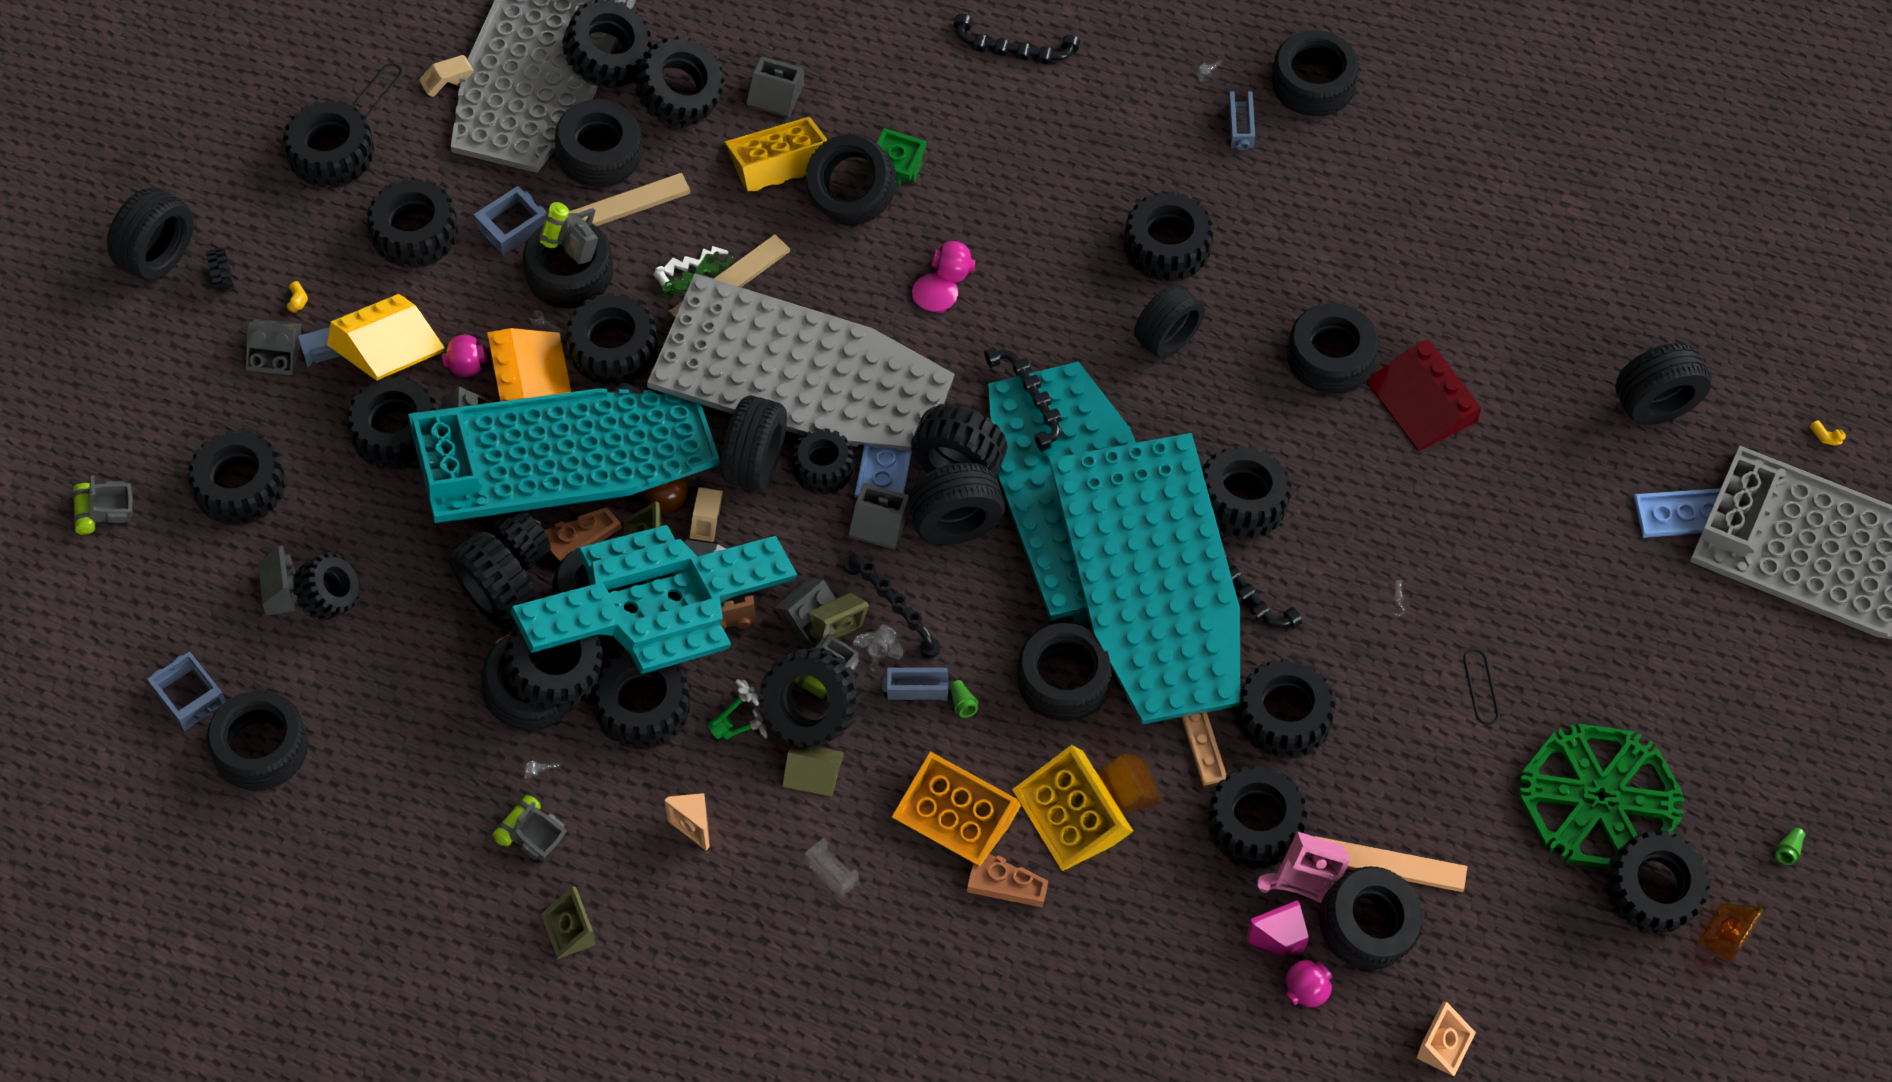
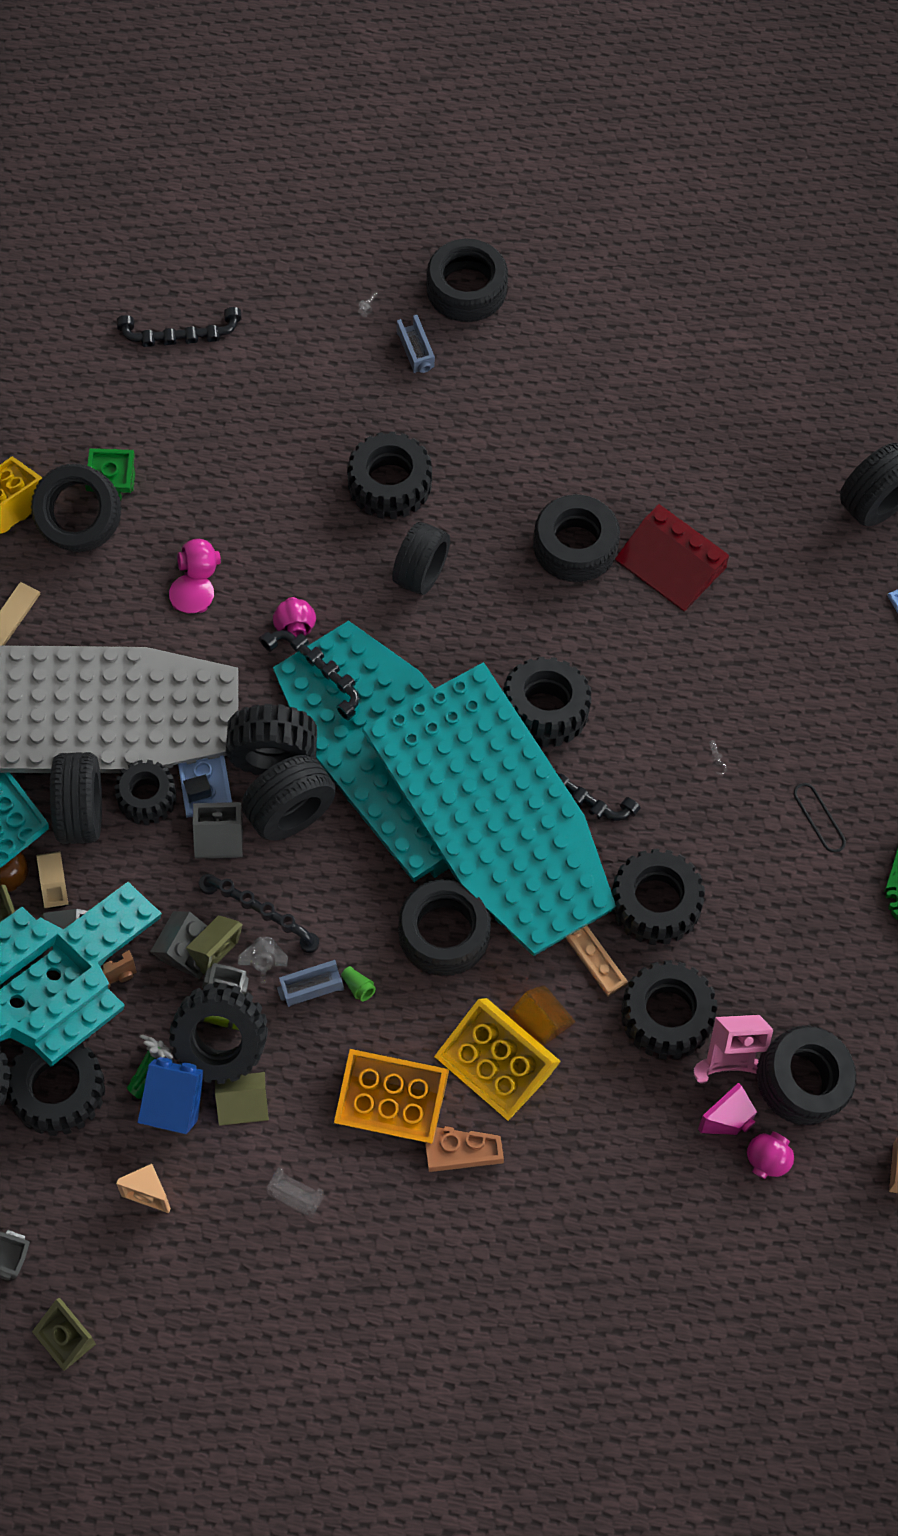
camera: 20 degrees left, 5 degrees up
(745, 739) = (171, 1095): none -> blue slope
(874, 472) = (197, 788): none -> black slope
(1026, 339) = (294, 614): none -> dark pink plant
(1409, 867) = (812, 1012): light nougat tile -> none

